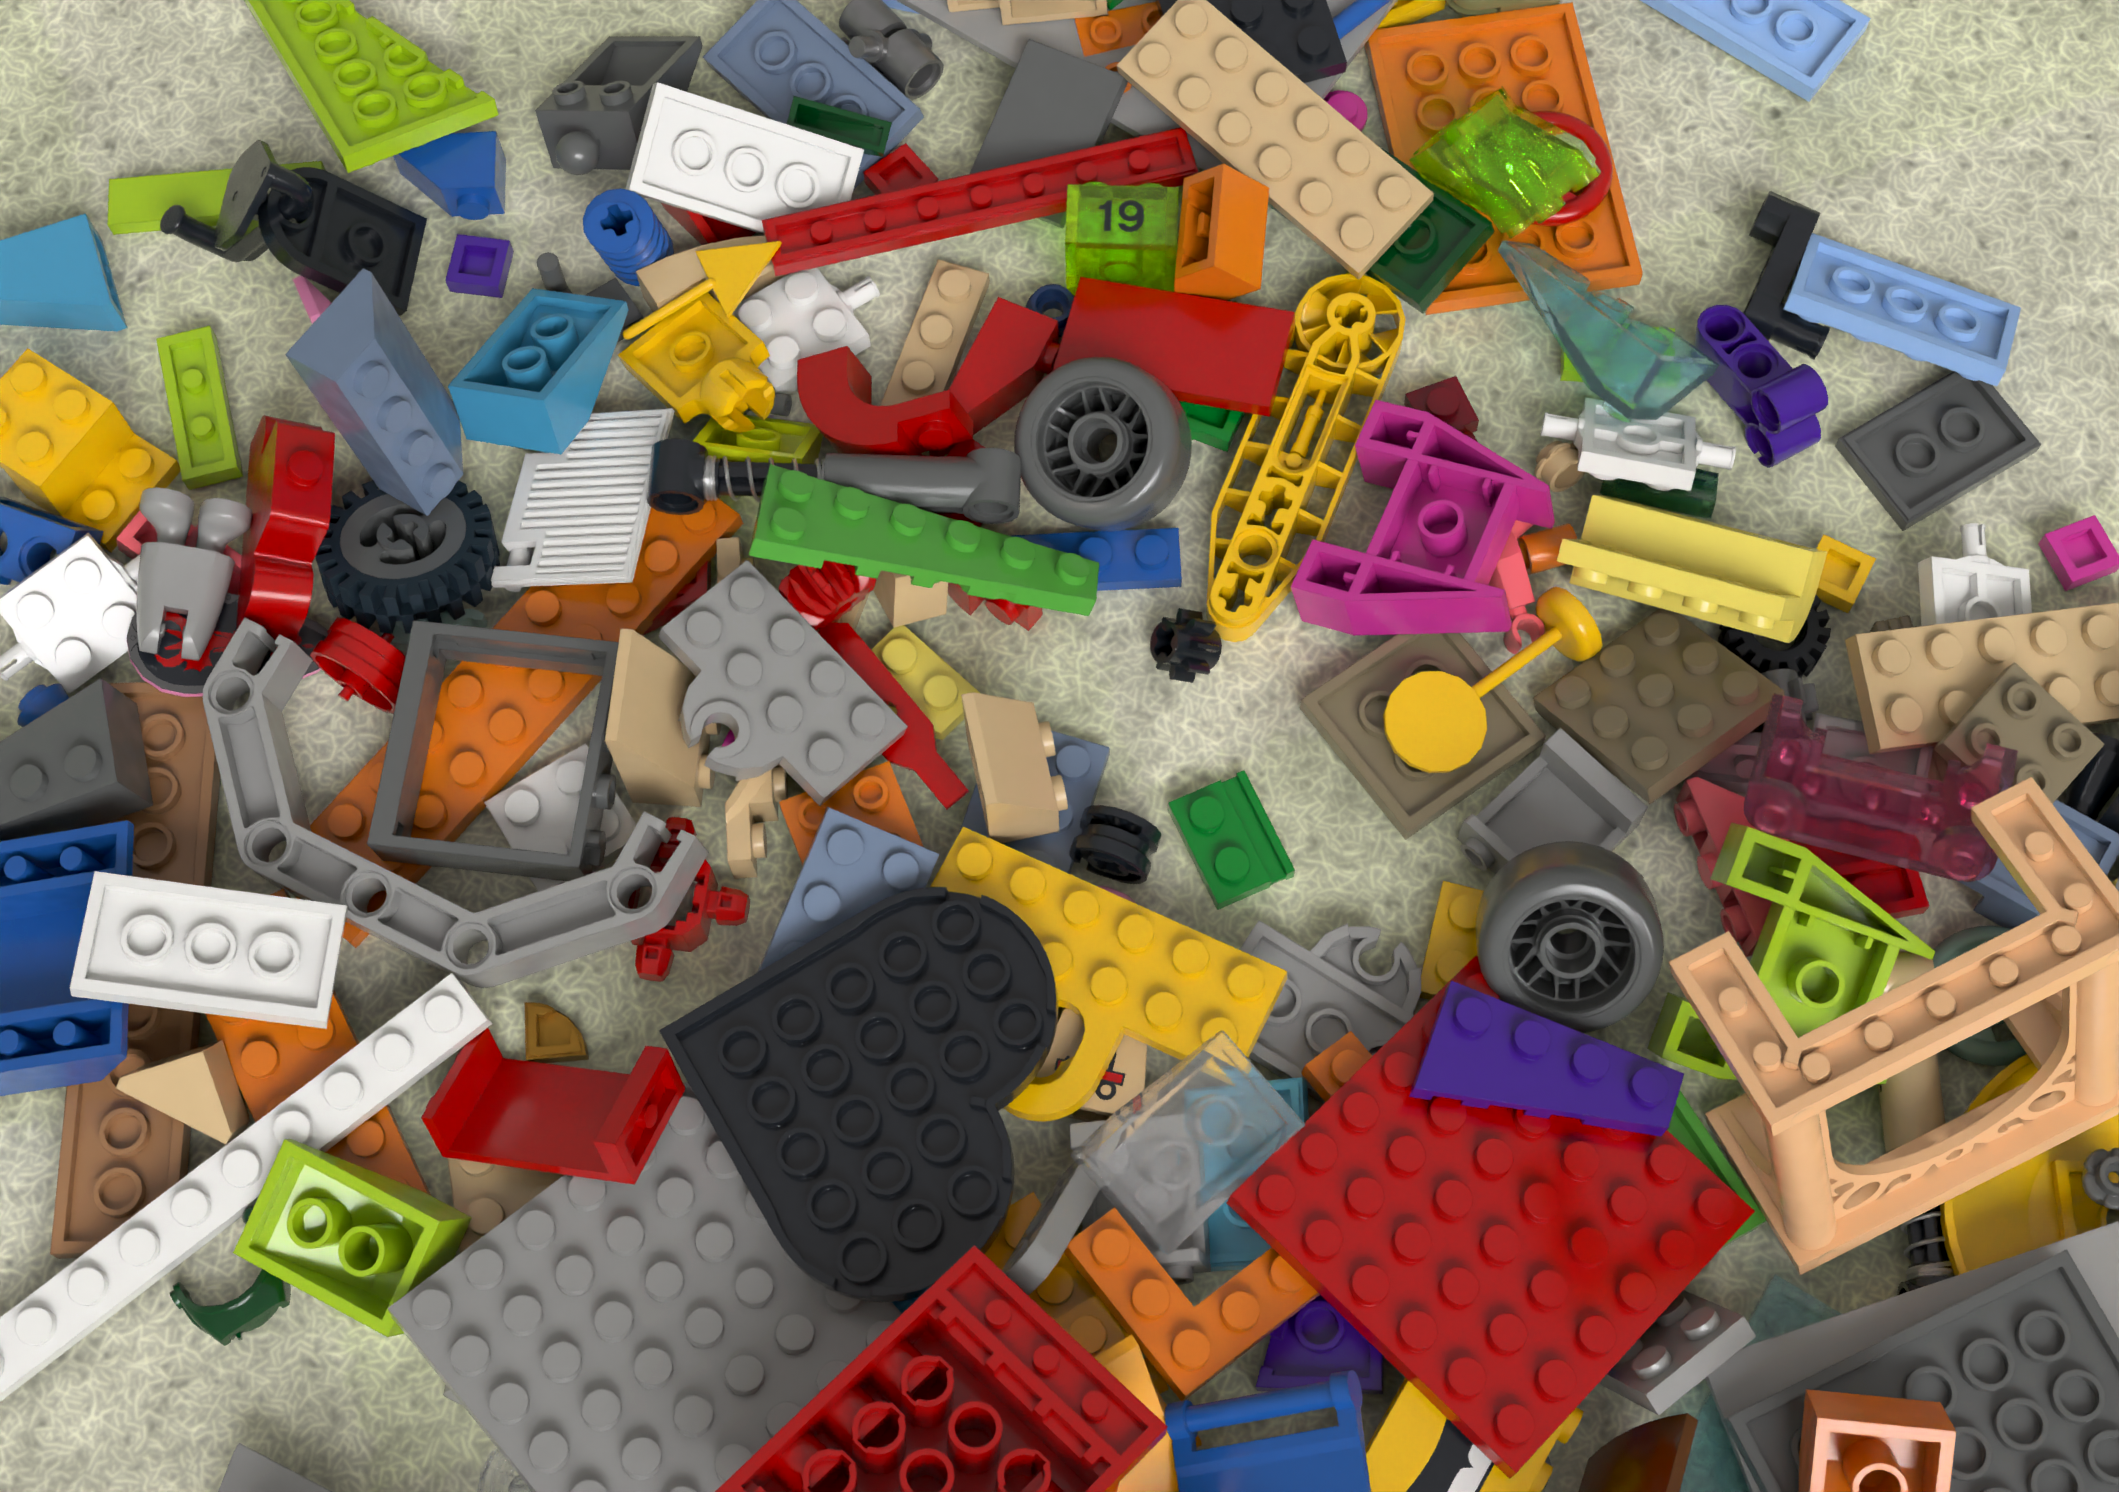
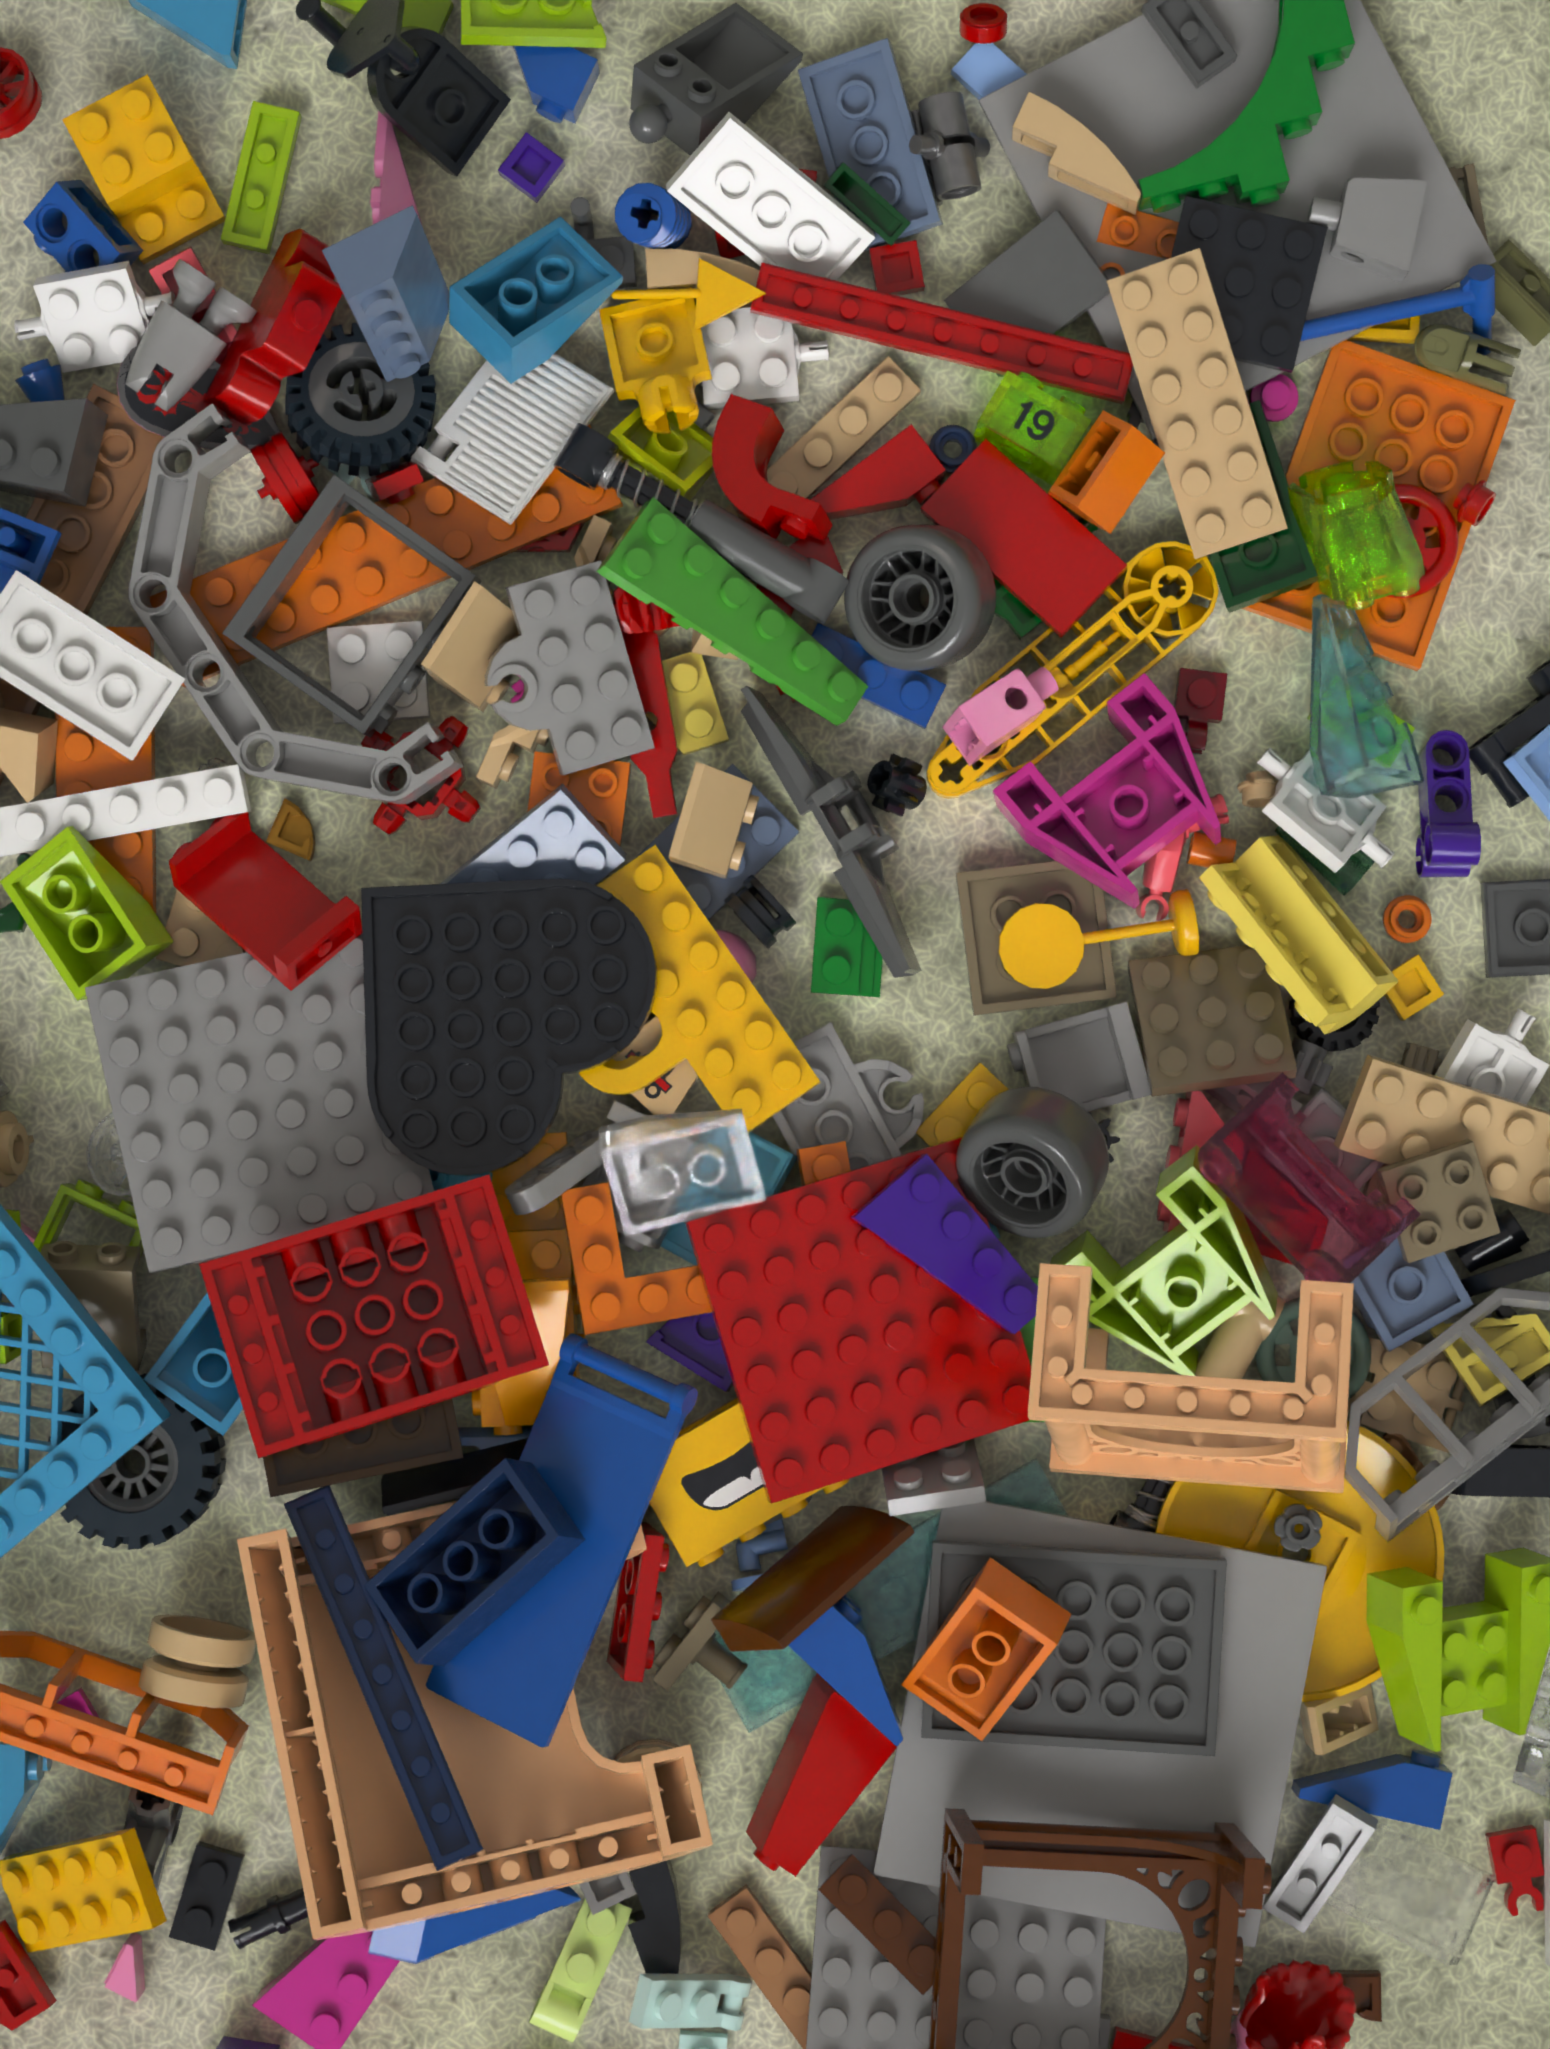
camera: 25 degrees right, 20 degrees up
(490, 608) = (395, 484): none -> red plate
(1181, 711) = (856, 849): none -> dark grey piece
(1255, 486) = (989, 720): none -> bright pink torso
(1595, 98) = (1473, 502): none -> red plate
(1791, 498) = (1421, 915): none -> orange plate

